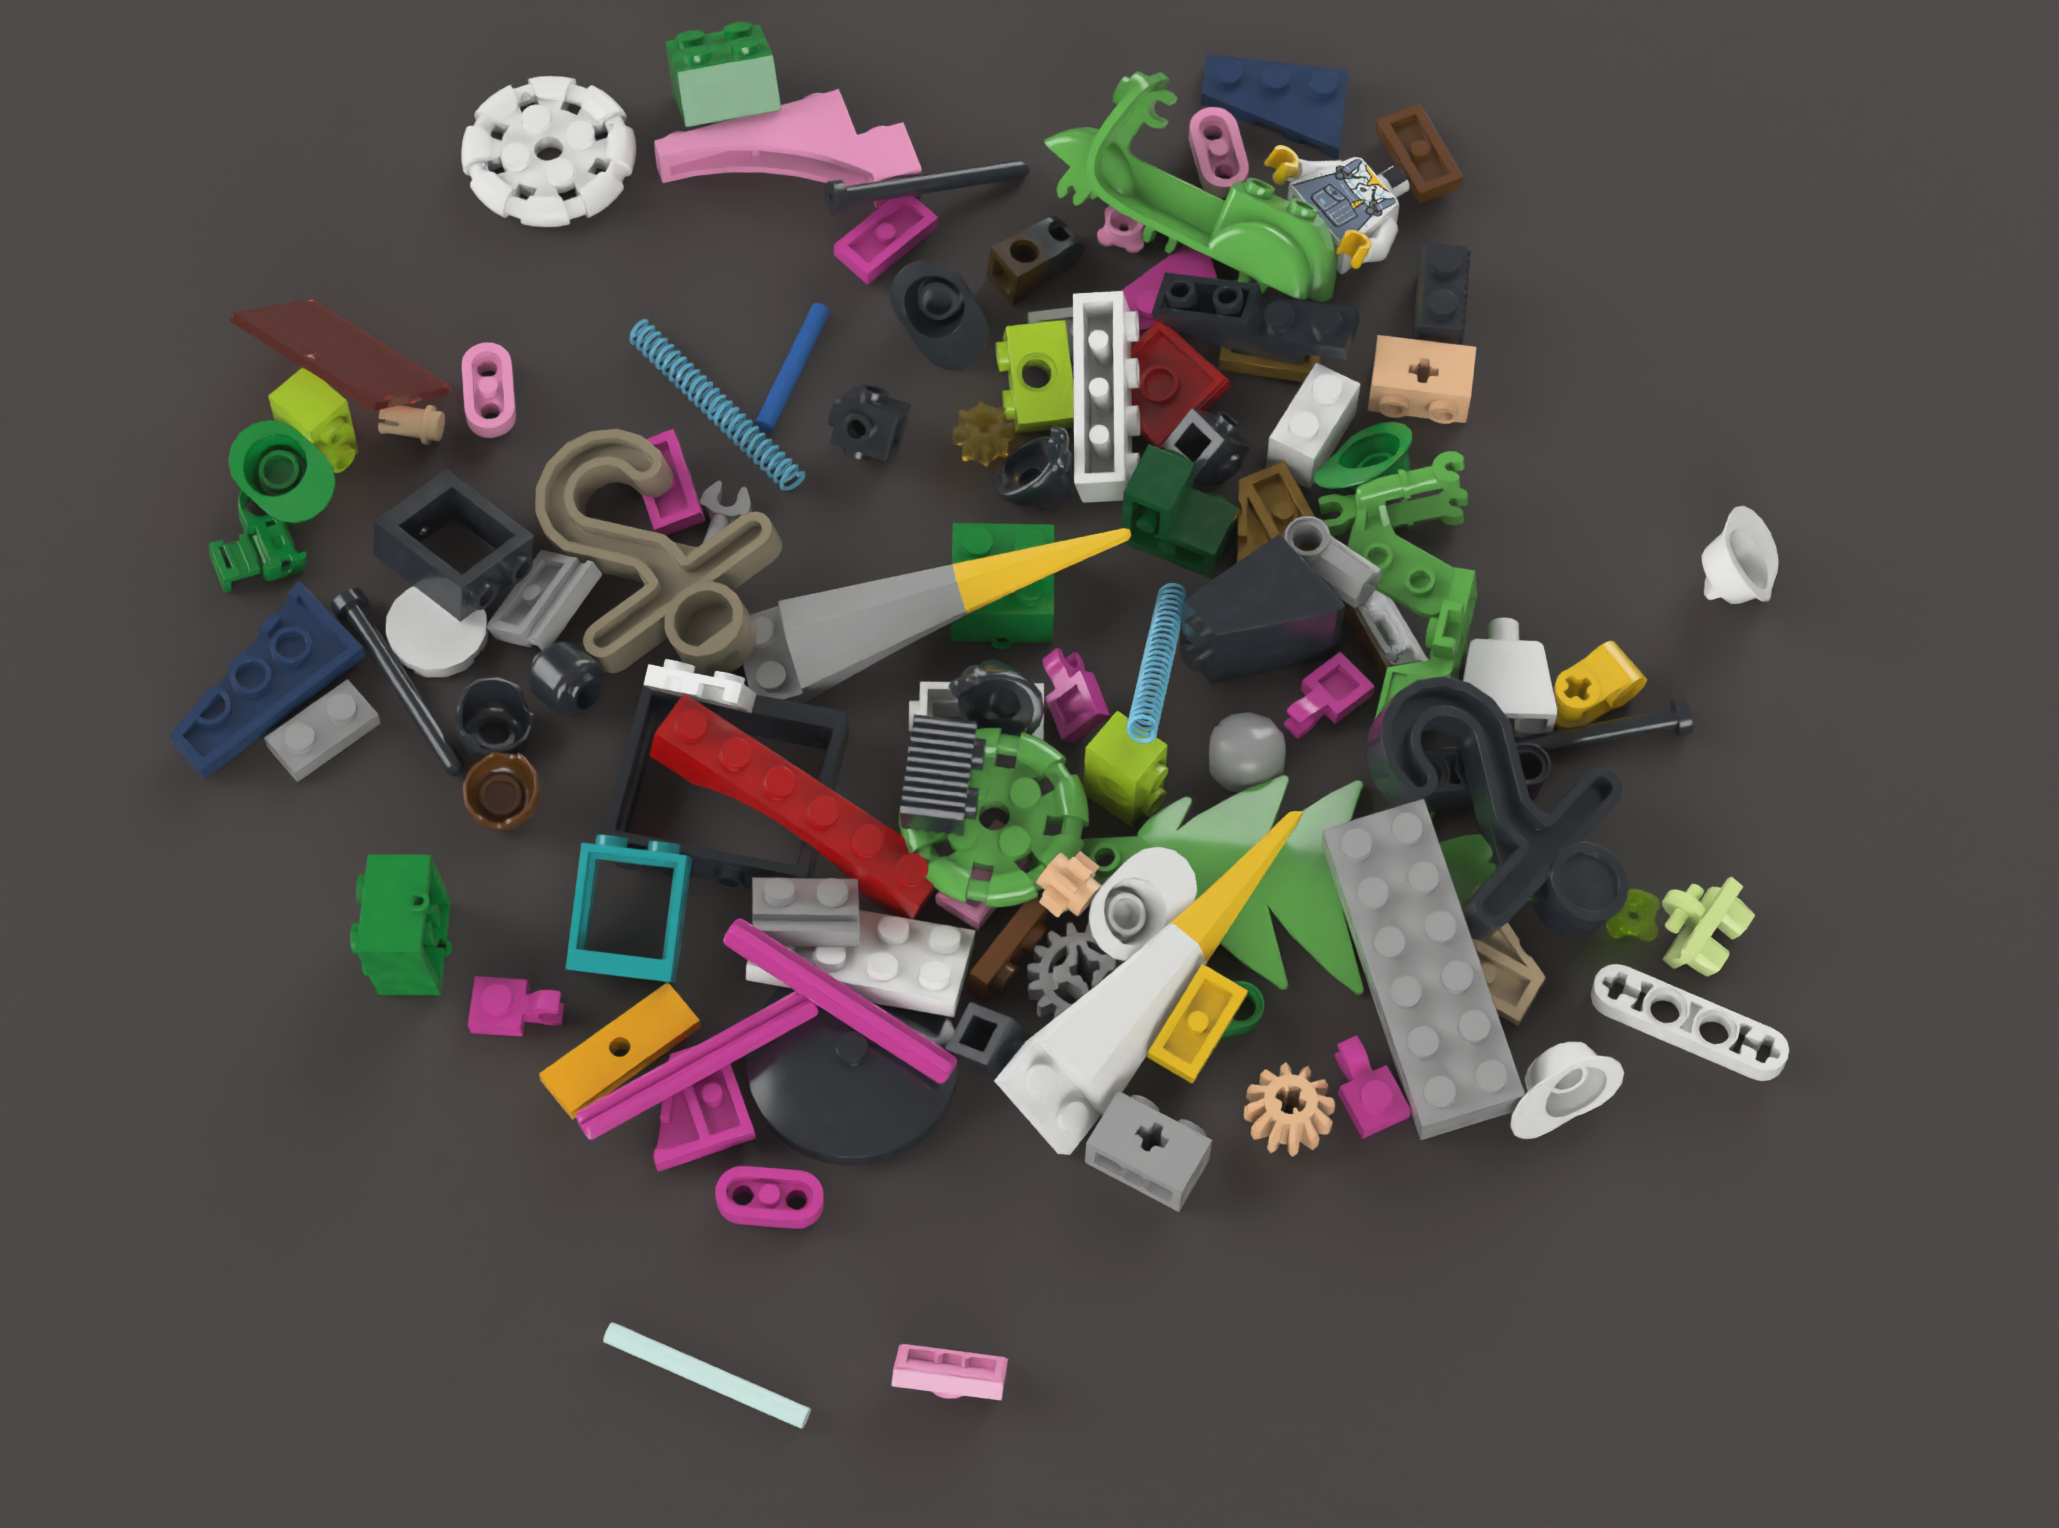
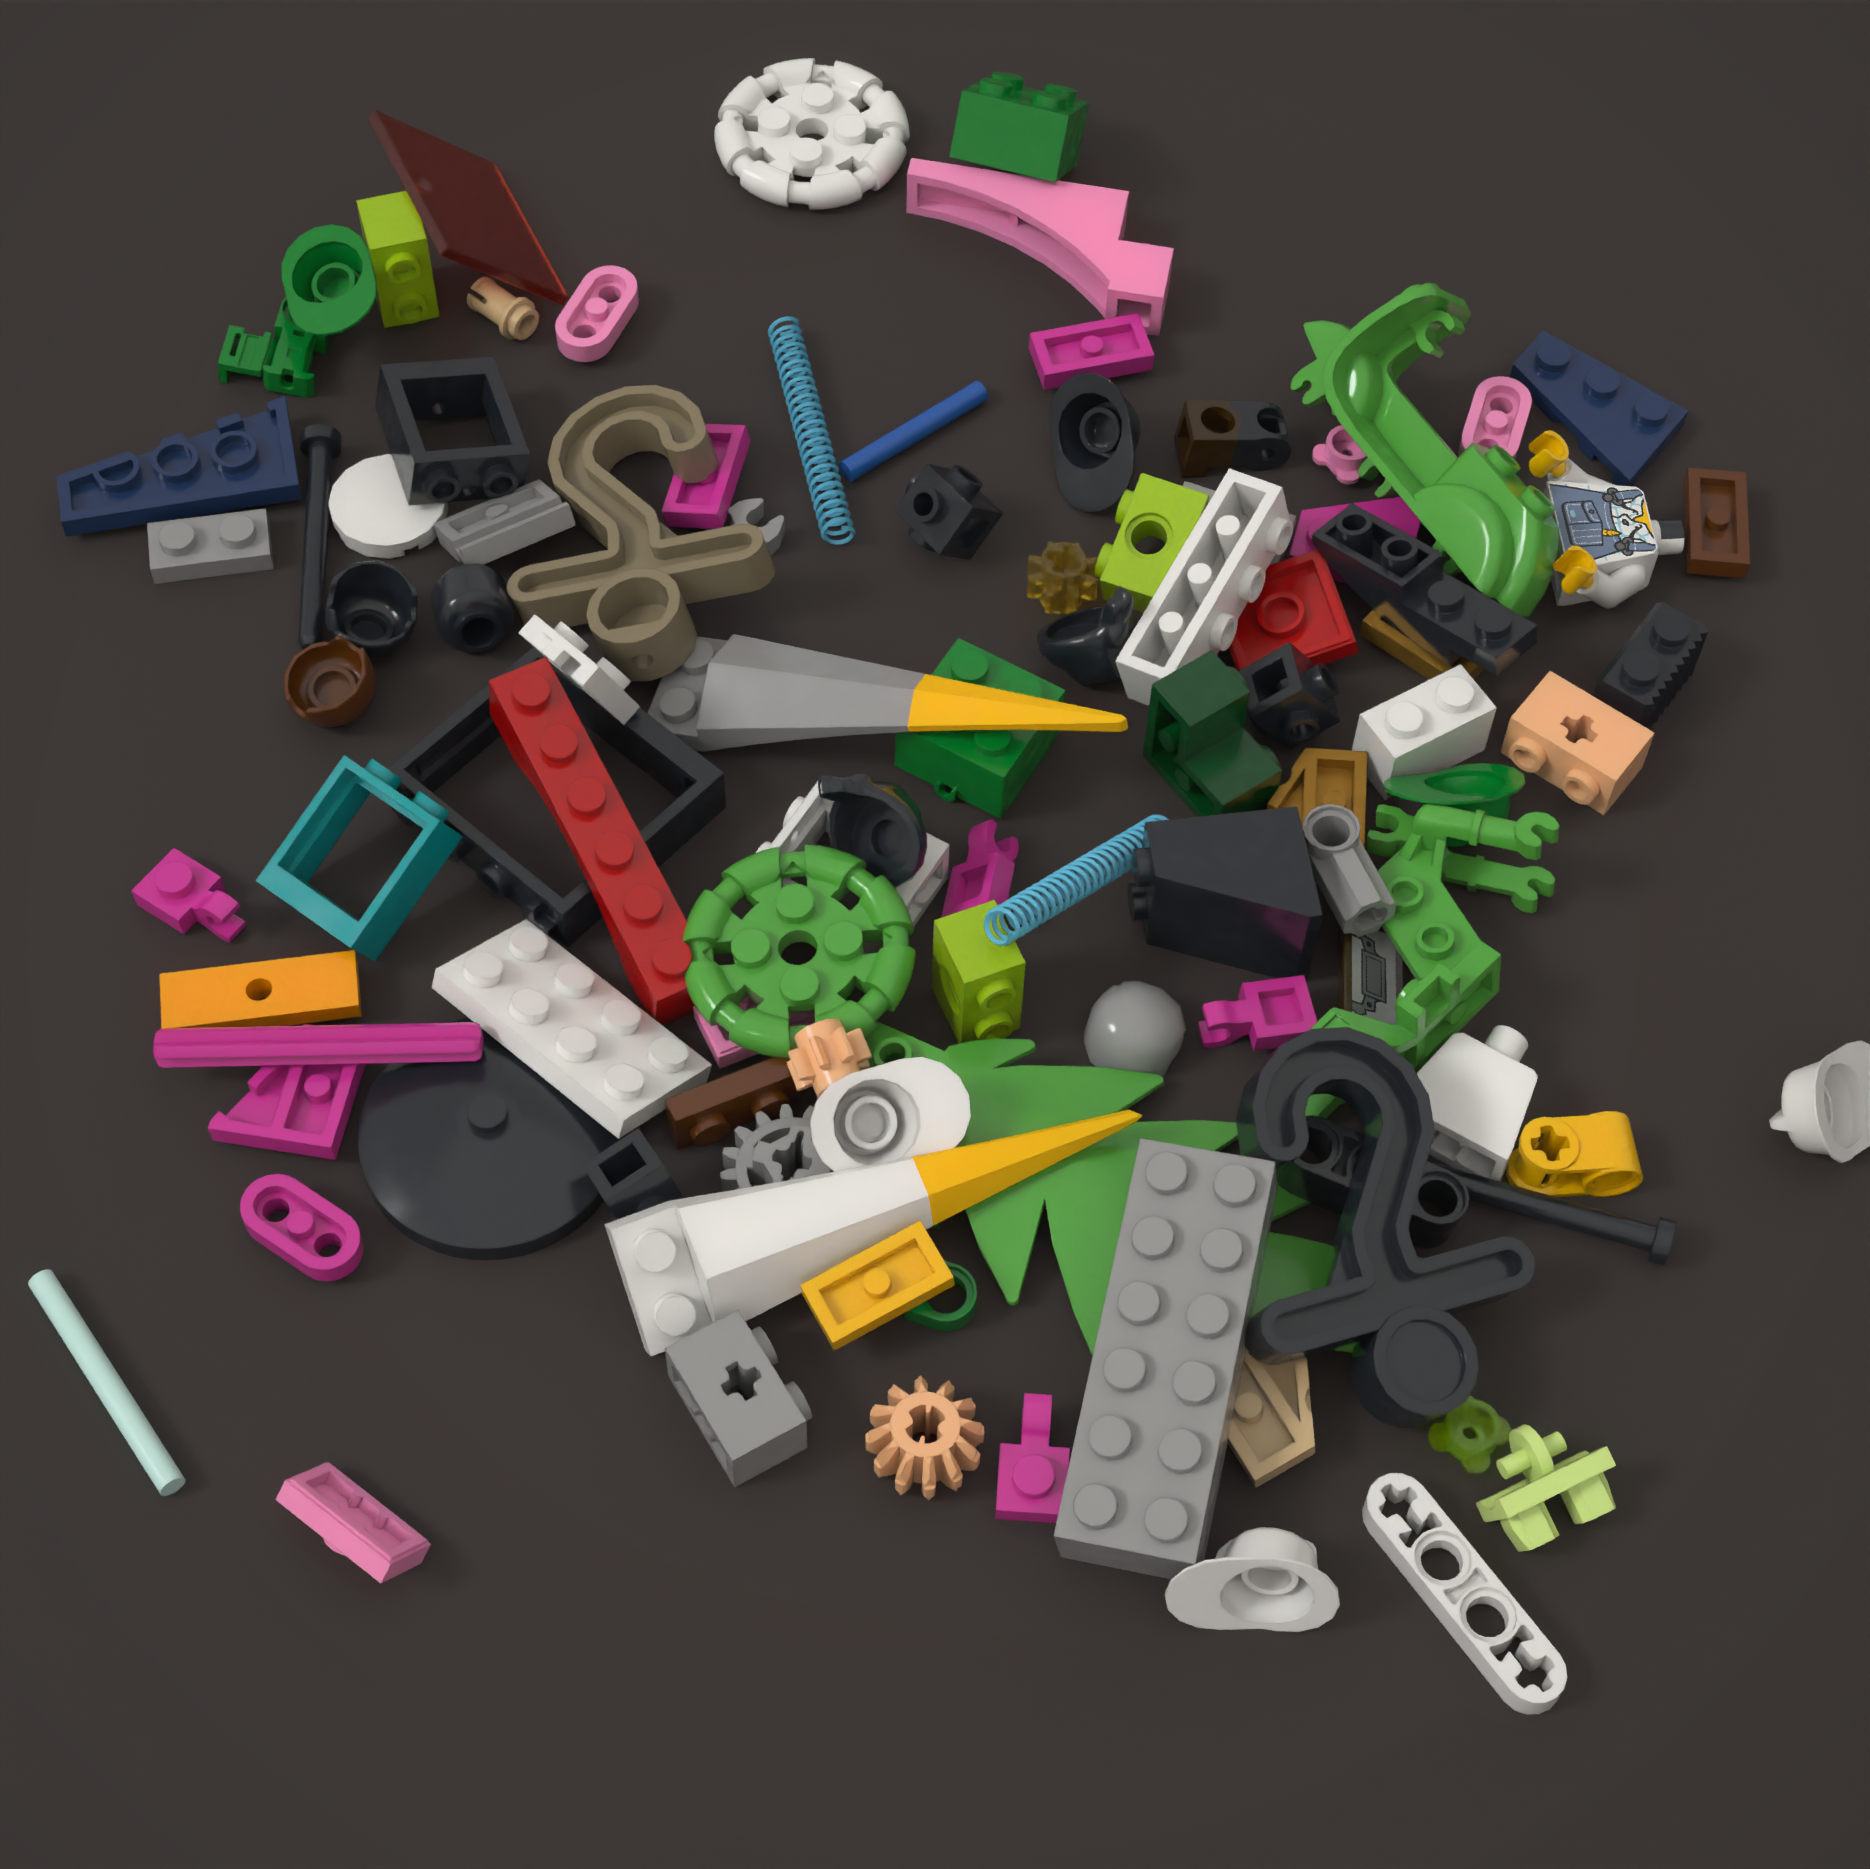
camera: 30 degrees right, 5 degrees down
(401, 924) = (128, 755): green brick -> none
(807, 911) = (536, 948): light grey plate -> none
(840, 196) = (1159, 316): black bar -> none
(840, 1001) = (503, 1057): dark pink axle -> none
(939, 775) = (755, 869): black brick -> none

